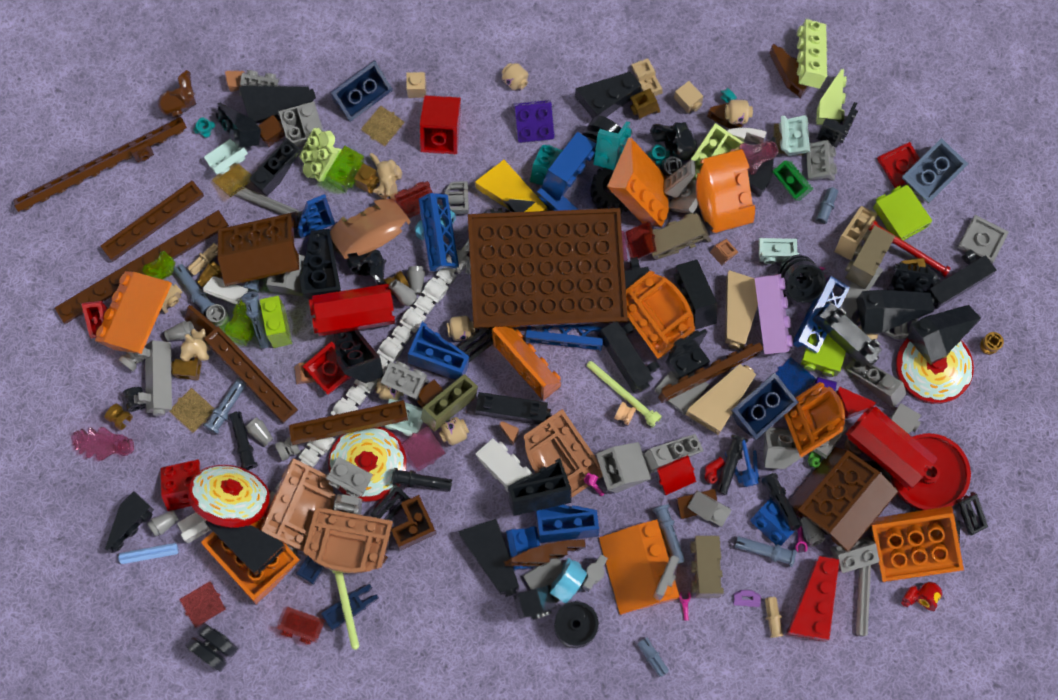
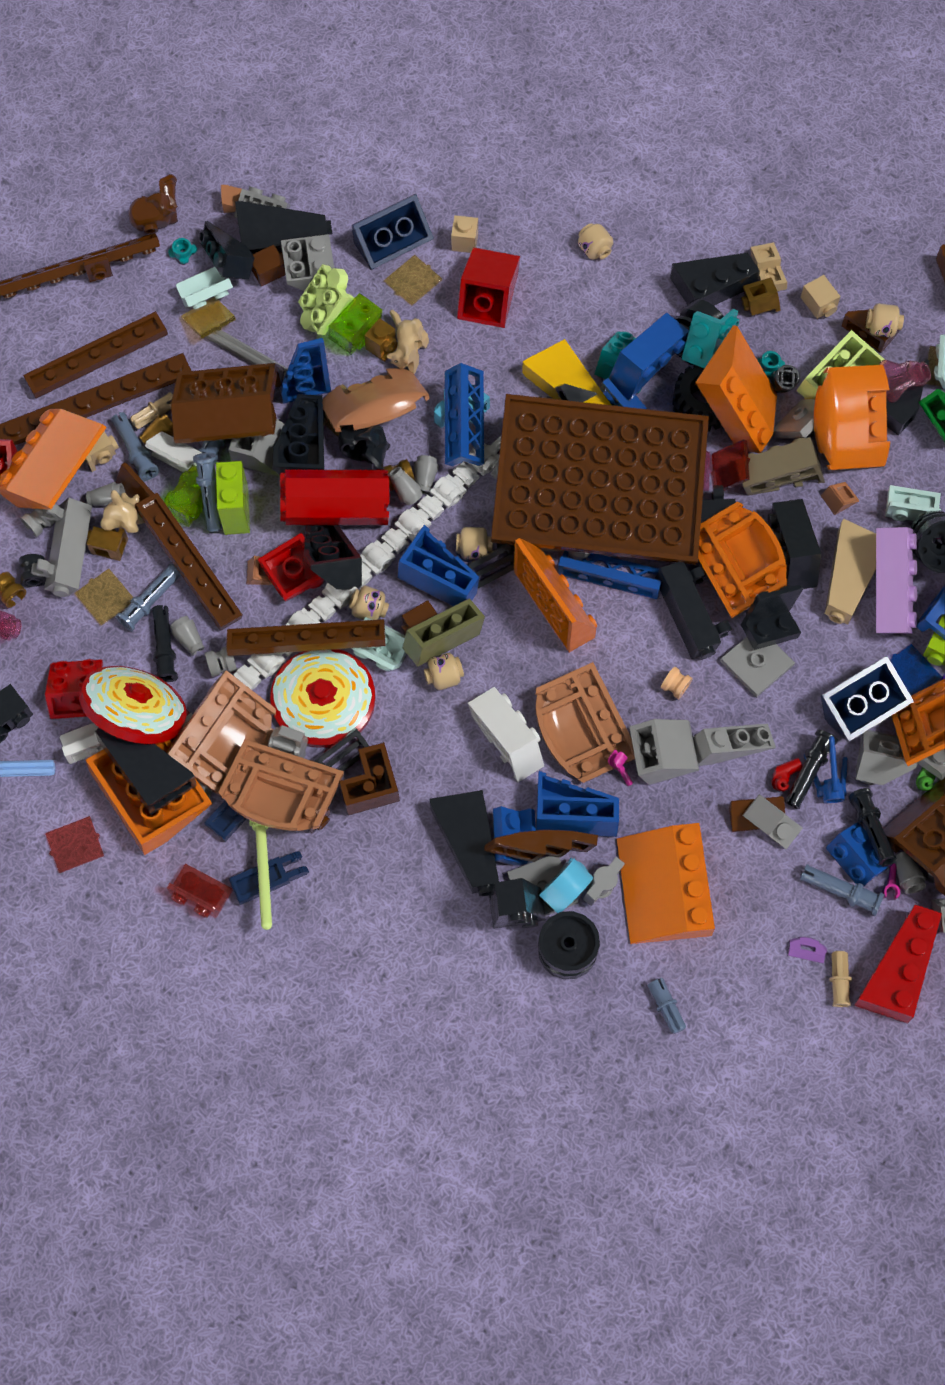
camera: 10 degrees right, 5 degrees down
(160, 268) = (99, 409): clear neon green bracket -> none
(162, 523) = (40, 732): light grey cone -> none
(214, 313) = (155, 478): light grey wheel -> none
(214, 644) = (73, 900): black wheel -> none
(275, 167) = (264, 310): black slope -> none
(349, 477) = (296, 707): light grey bracket -> none
(403, 380) = (388, 593): light grey bracket -> none
(409, 199) = (432, 372): clear red bracket -> none
(412, 479) = (379, 724): black pin -> none
(423, 448) = (399, 687): clear pink piece -> none
(458, 197) = (497, 380): light grey piece -> none
(510, 431) = (519, 683): nougat slope -> none
(512, 408) = (525, 653): black brick -> none
(534, 121) = (612, 300): dark purple bracket -> none
(540, 491) = (547, 759): black wedge -> none
(651, 416) = (709, 690): yellowish green piece -> none
(666, 525) = (711, 837): sand blue pin -> none
(667, 578) = (701, 896): light grey plate -> none
(676, 475) = (734, 771): red piece -> none
(677, 139) = (797, 343): black head -> none
(680, 179) = (792, 395): light grey slope -> none
(685, 605) = (721, 941): dark pink hand -> none
(703, 375) = (793, 647): reddish brown plate -> none
(706, 567) = (757, 898): dark tan wedge -> none
(715, 406) = (799, 691): tan slope -> none
(727, 95) = (871, 300): teal plate -> none
(749, 134) = (894, 352): white slope -> none

